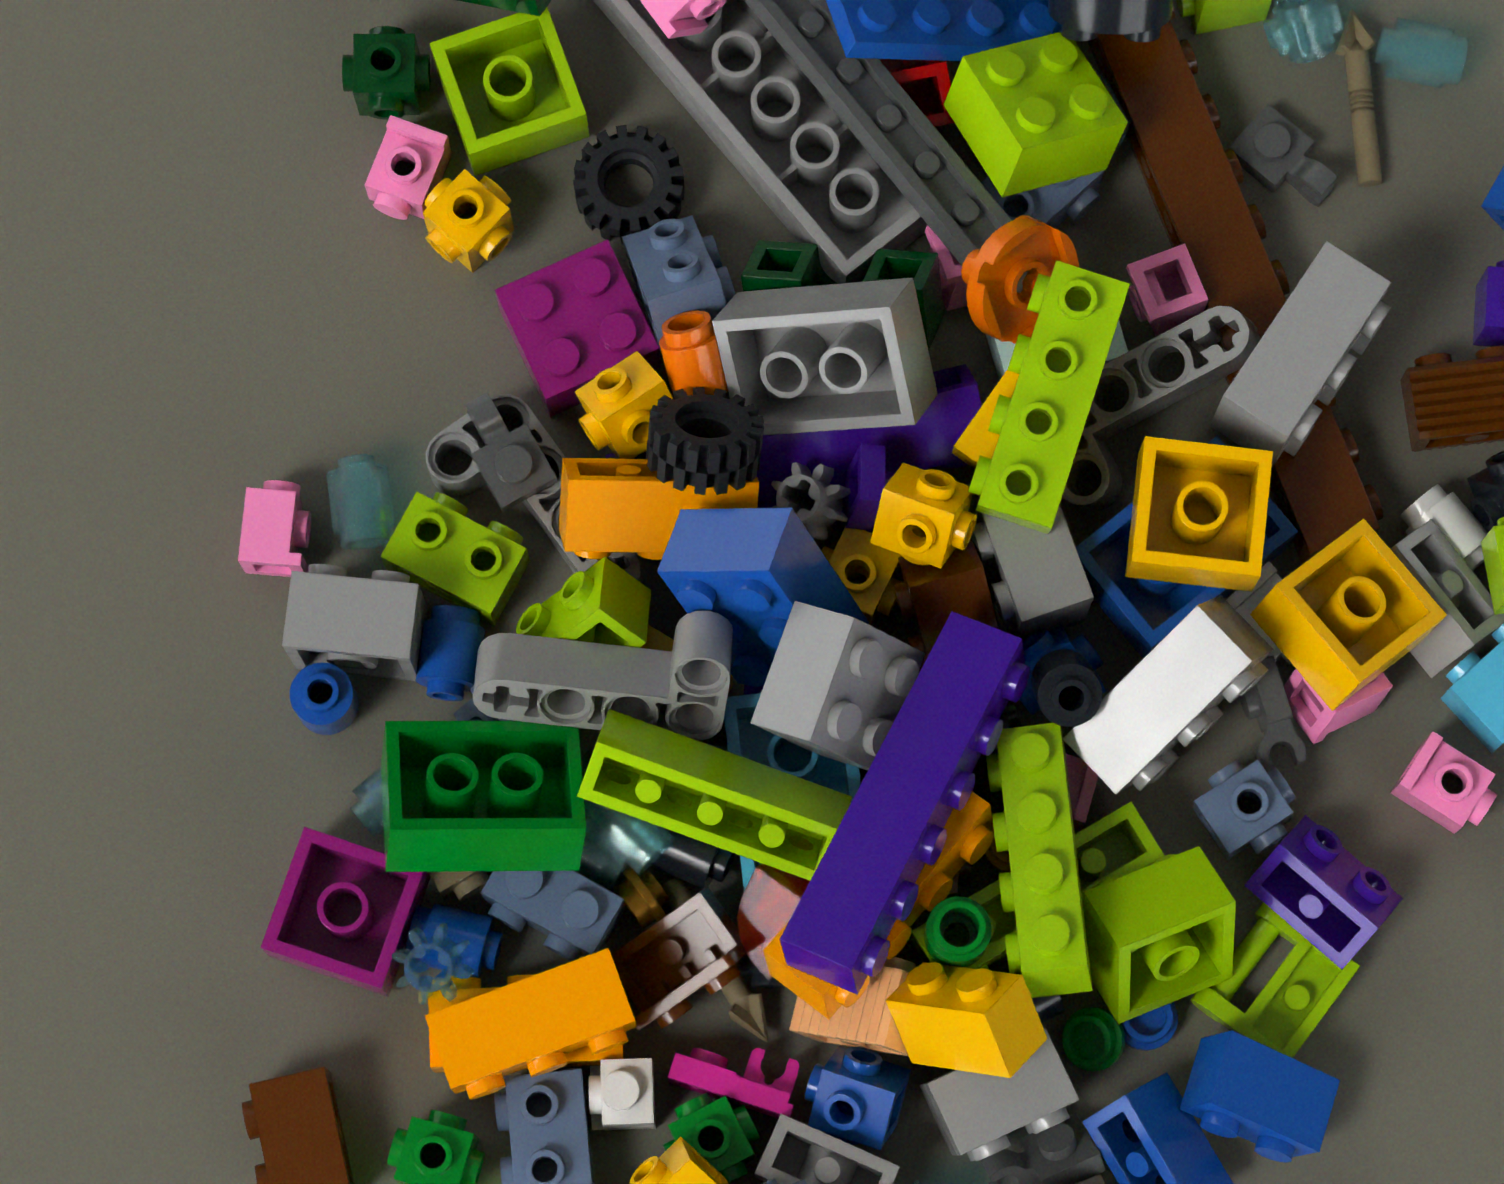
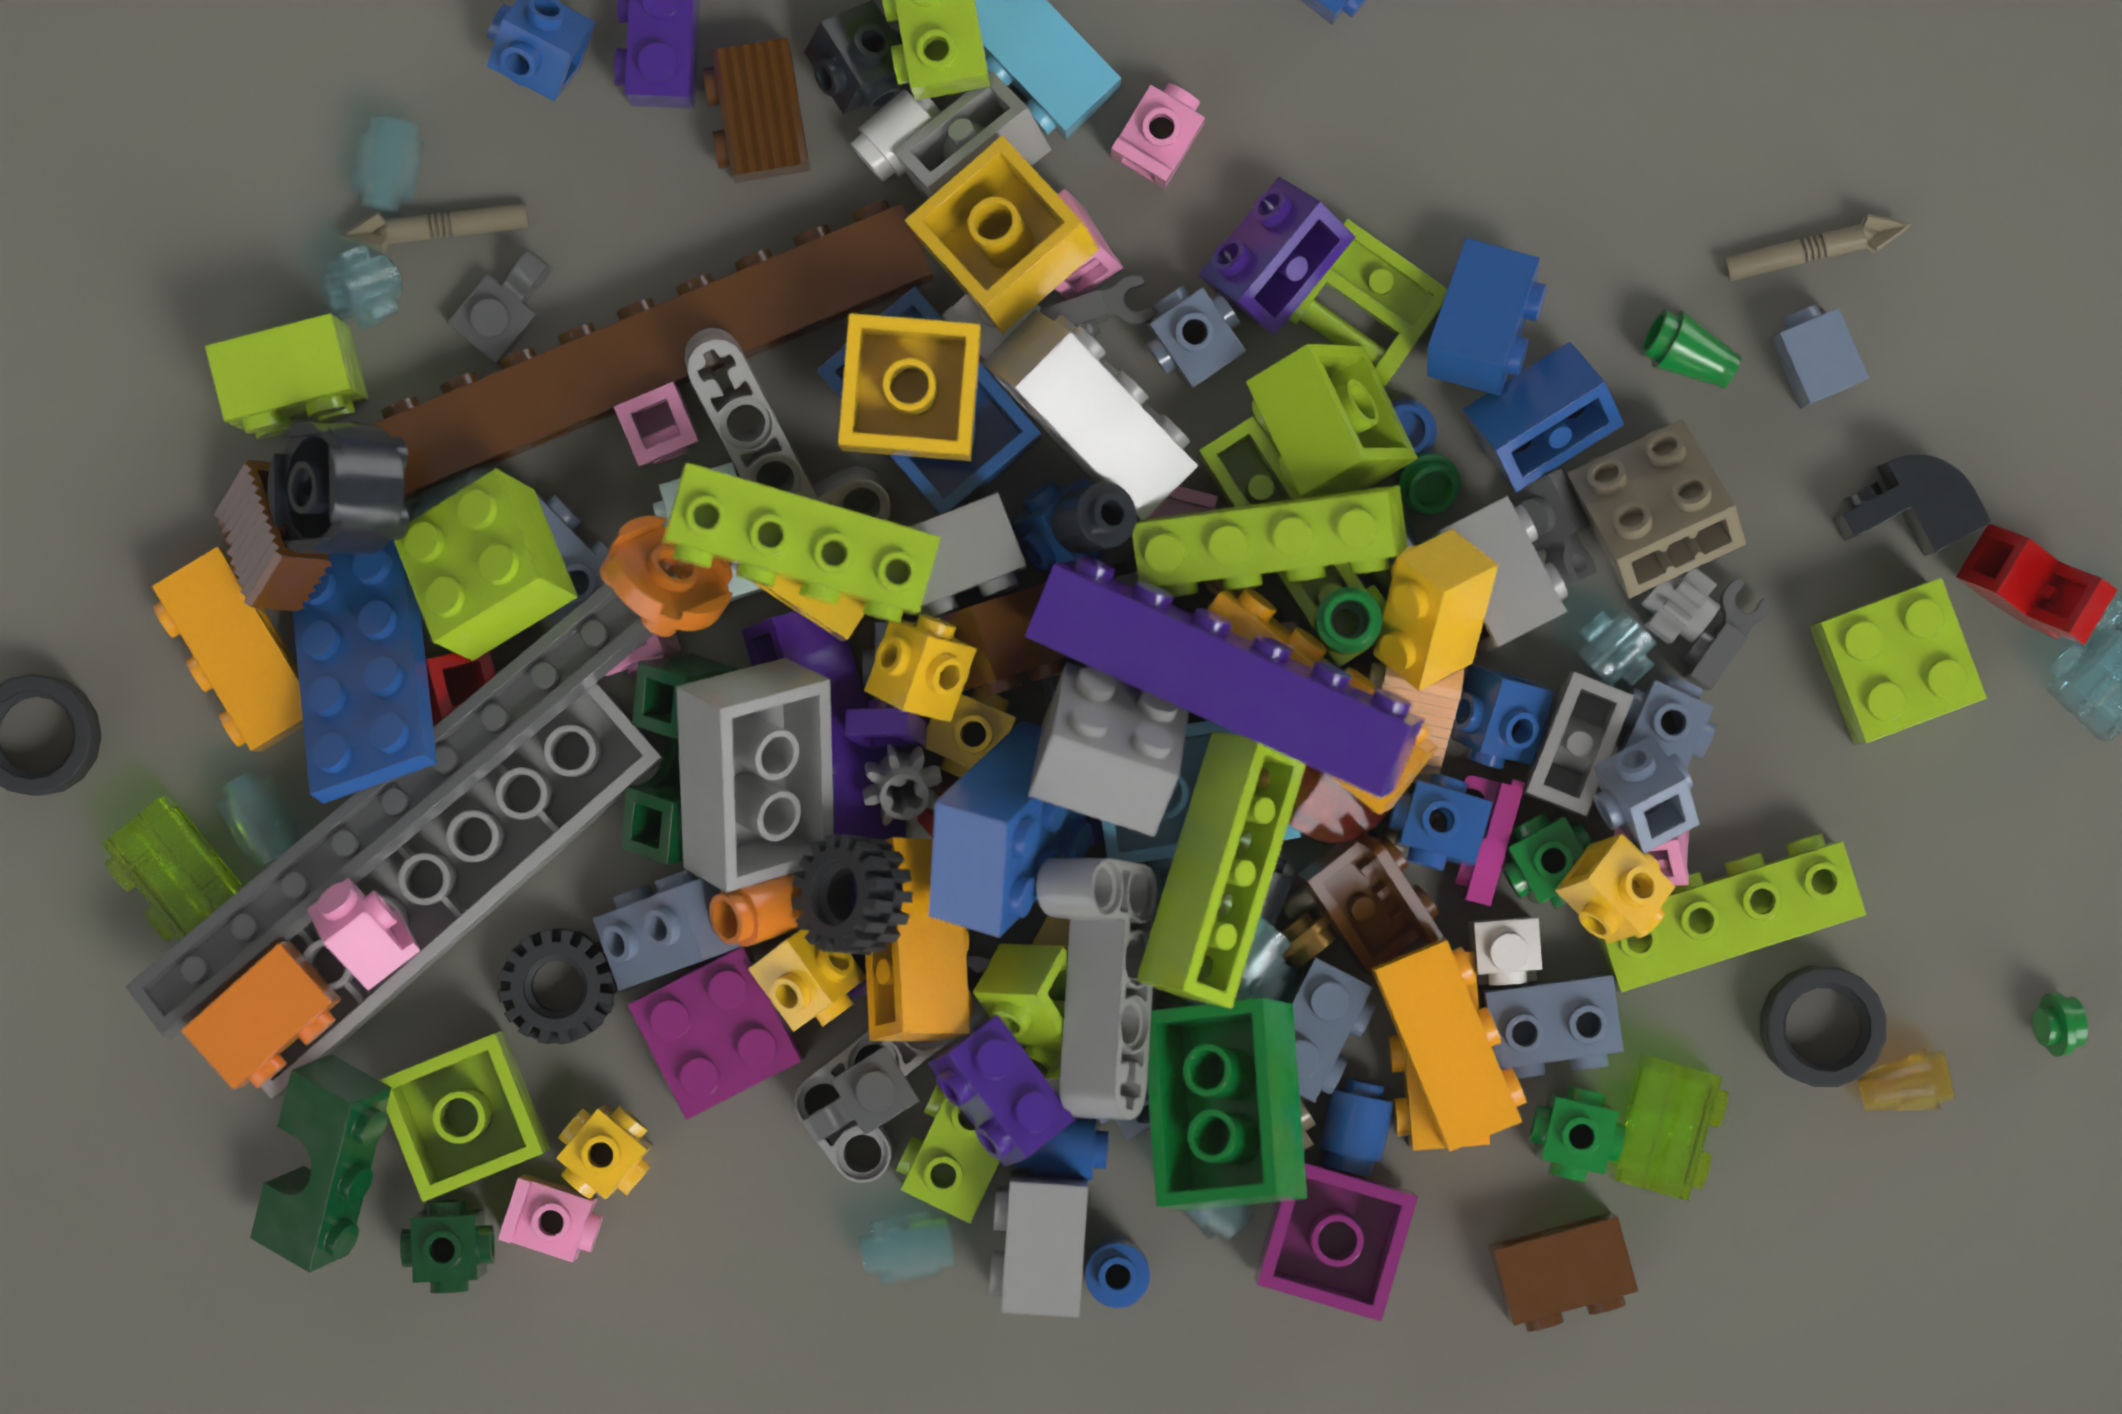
camera: 90 degrees left, 10 degrees up
(274, 530) = (940, 1334): bright pink brick -> none
(417, 972) = (1404, 1160): clear light blue gear -> none
(506, 580) = (1000, 1092): none -> dark purple brick
(746, 1050) = (1463, 817): none -> blue brick
(1304, 355) = (737, 282): light grey brick -> none

